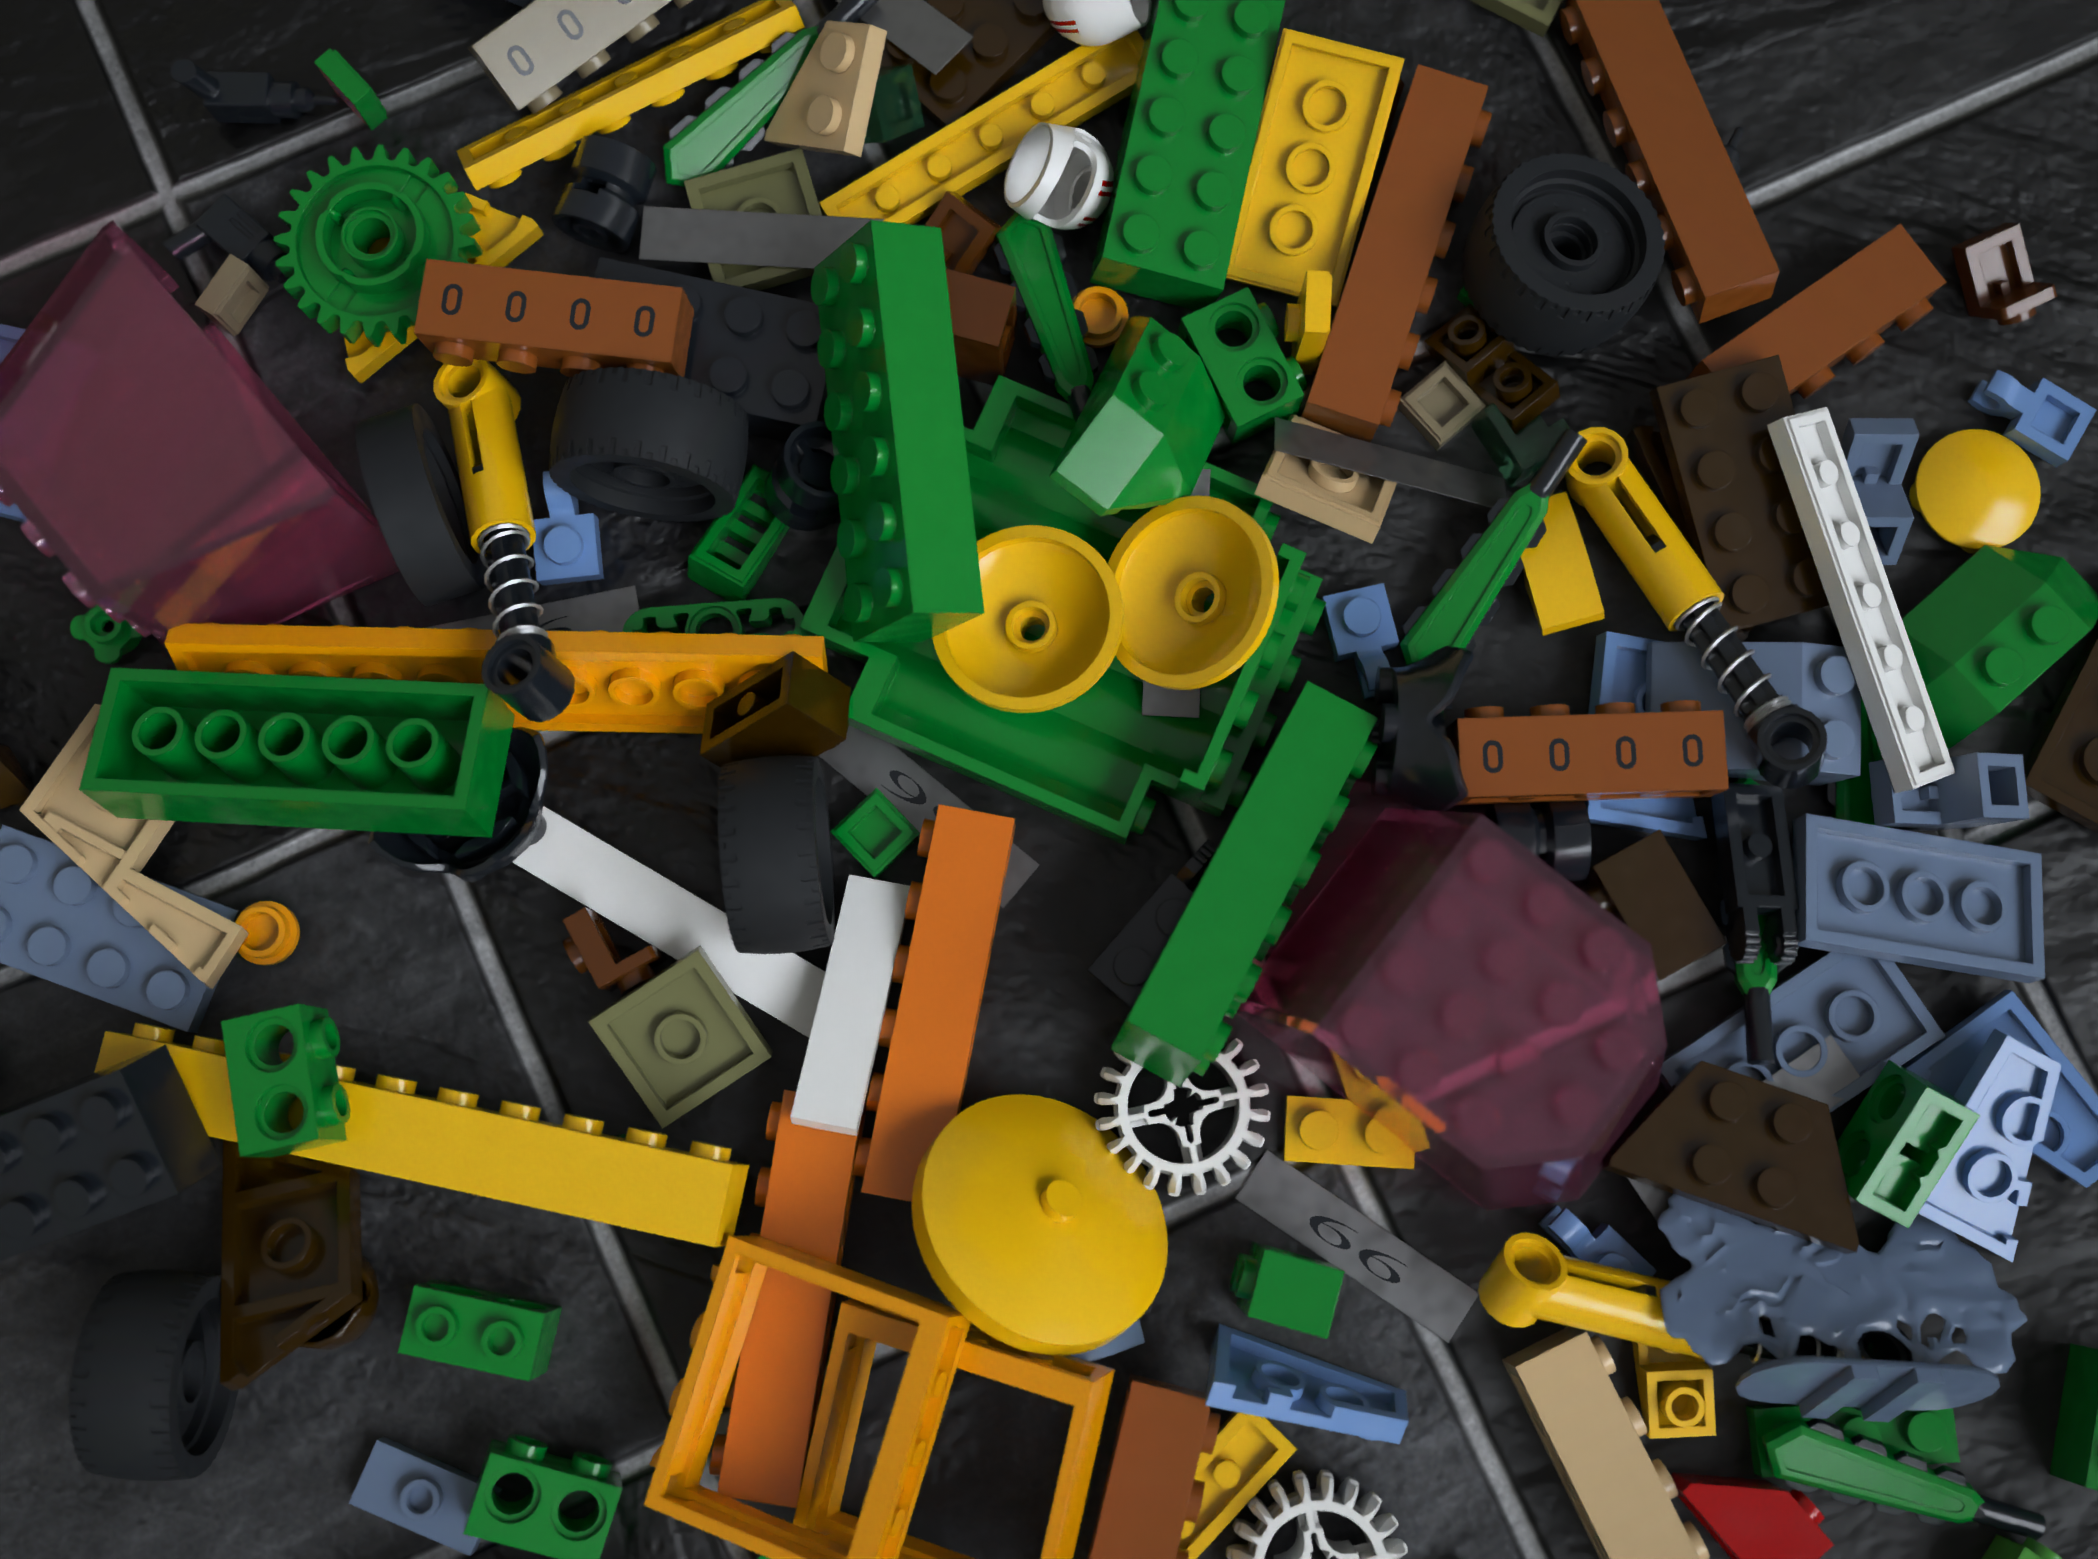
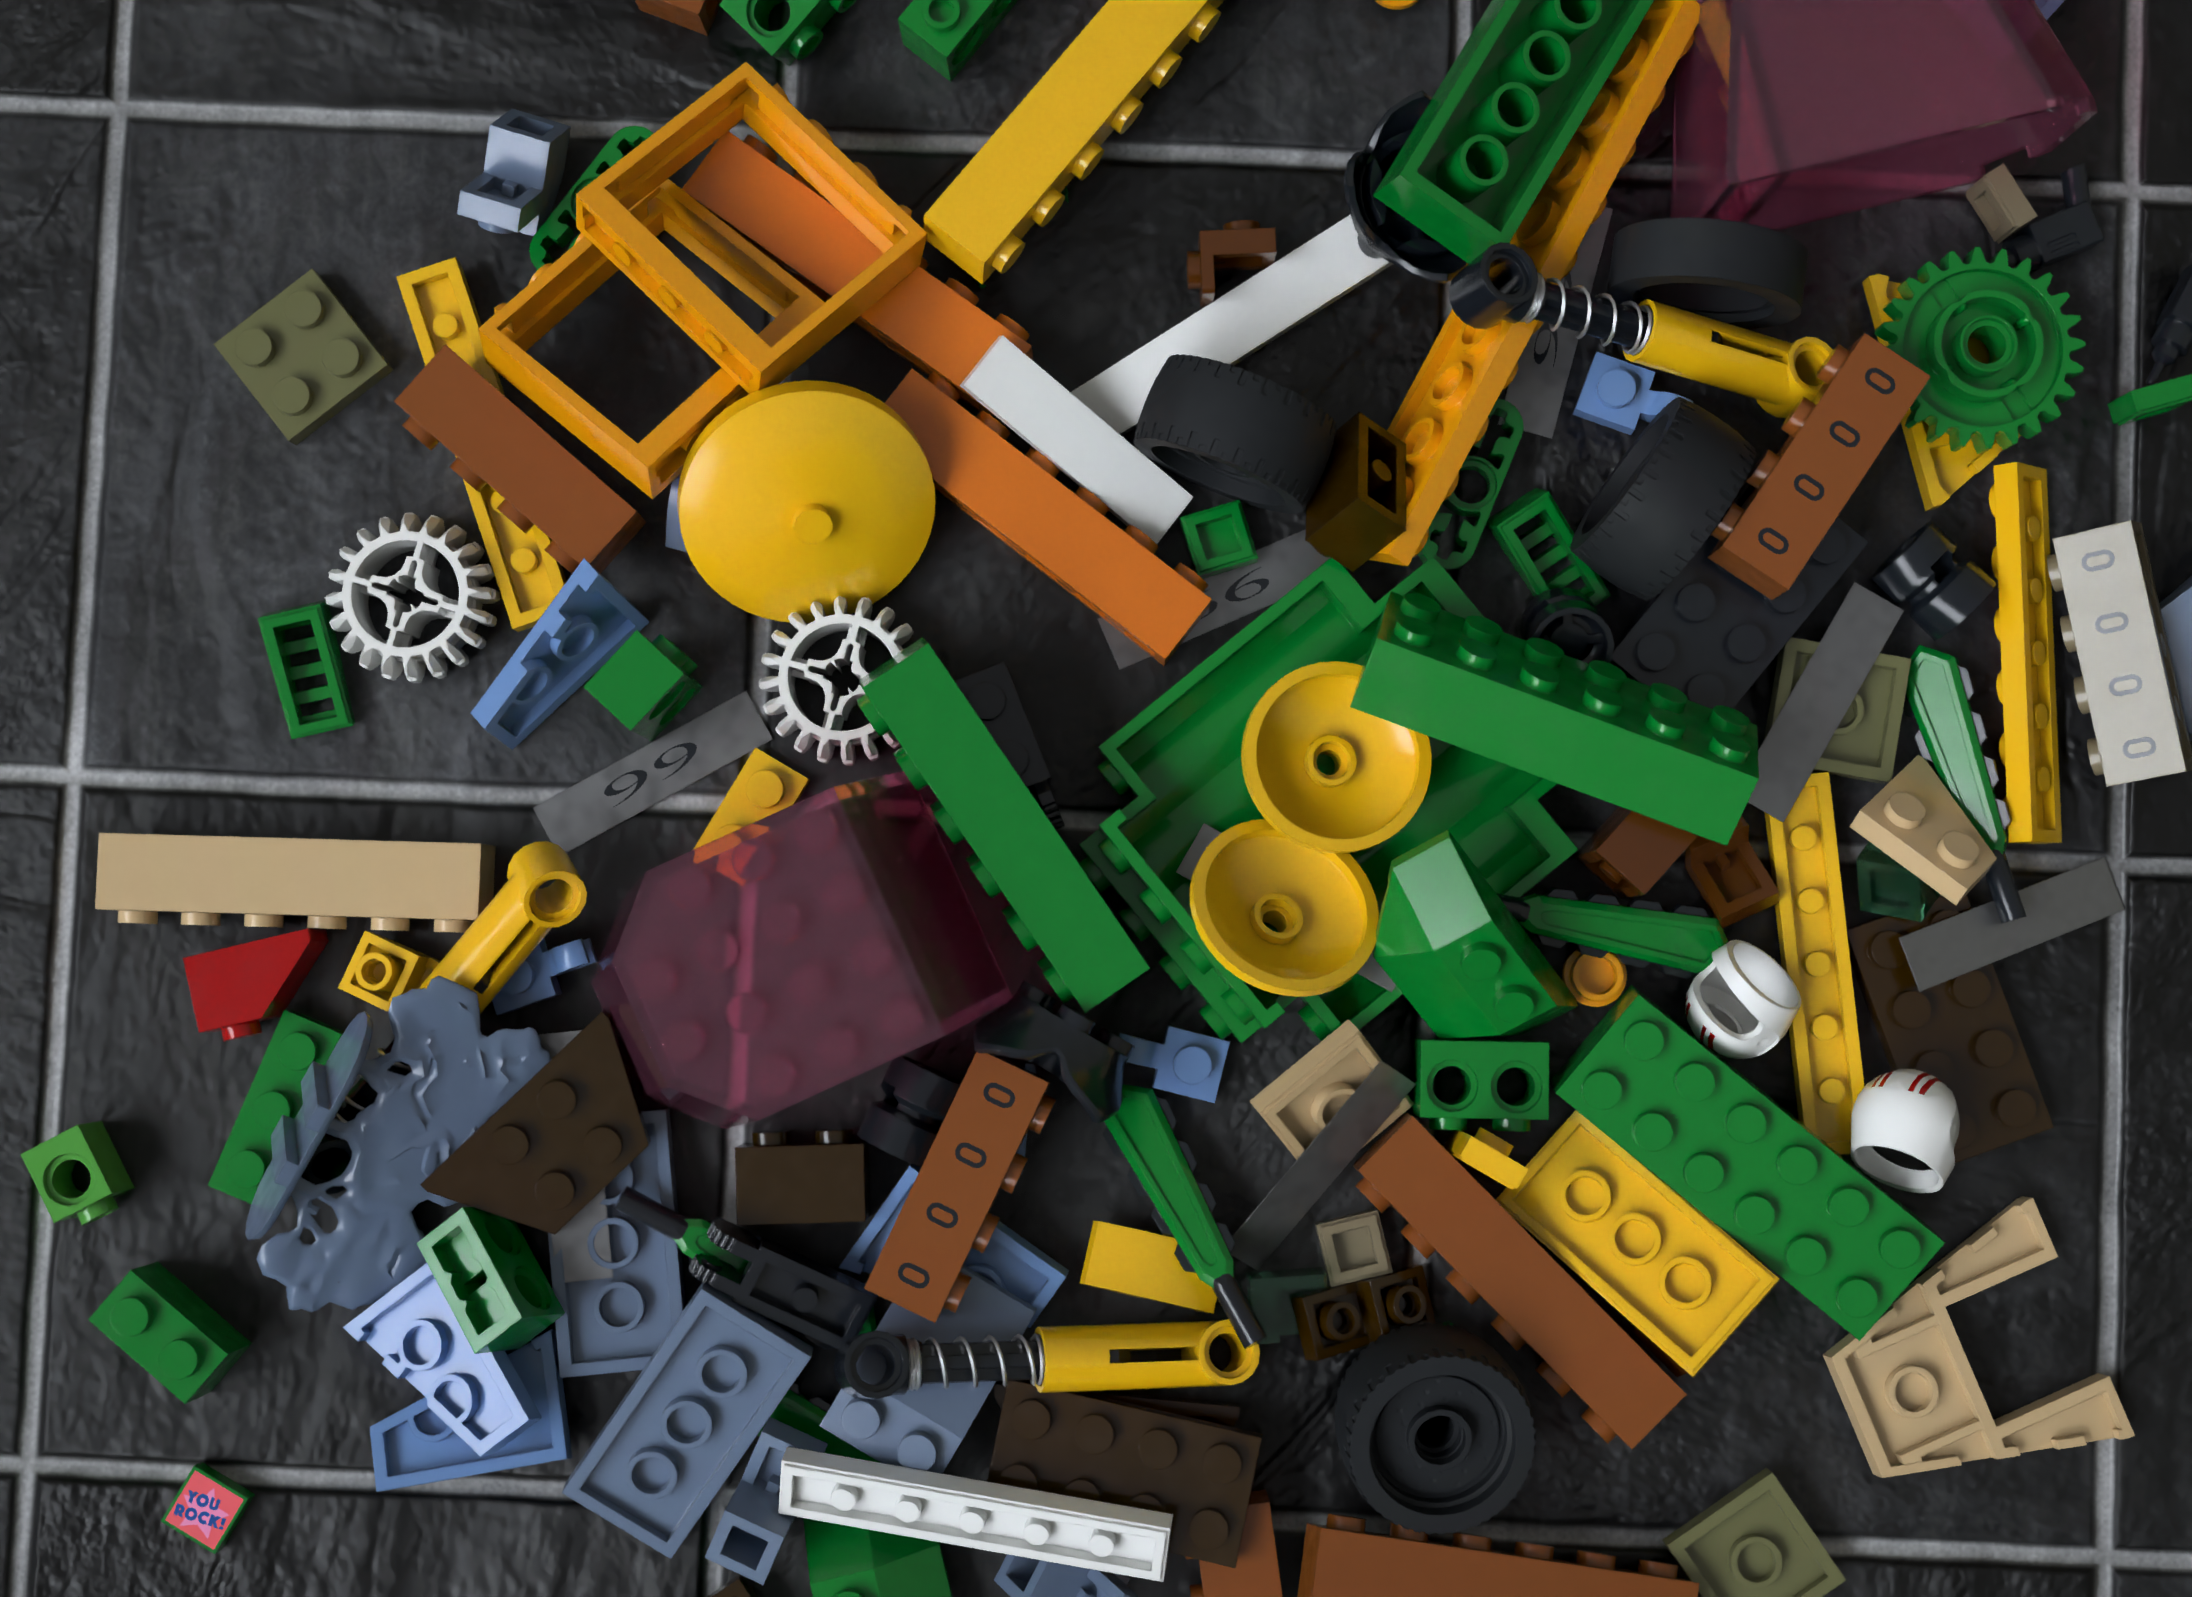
camera: 120 degrees right, 5 degrees up
(681, 1037) = (1124, 283): olive plate -> none
(1860, 1469) = (246, 1093): green sword -> none

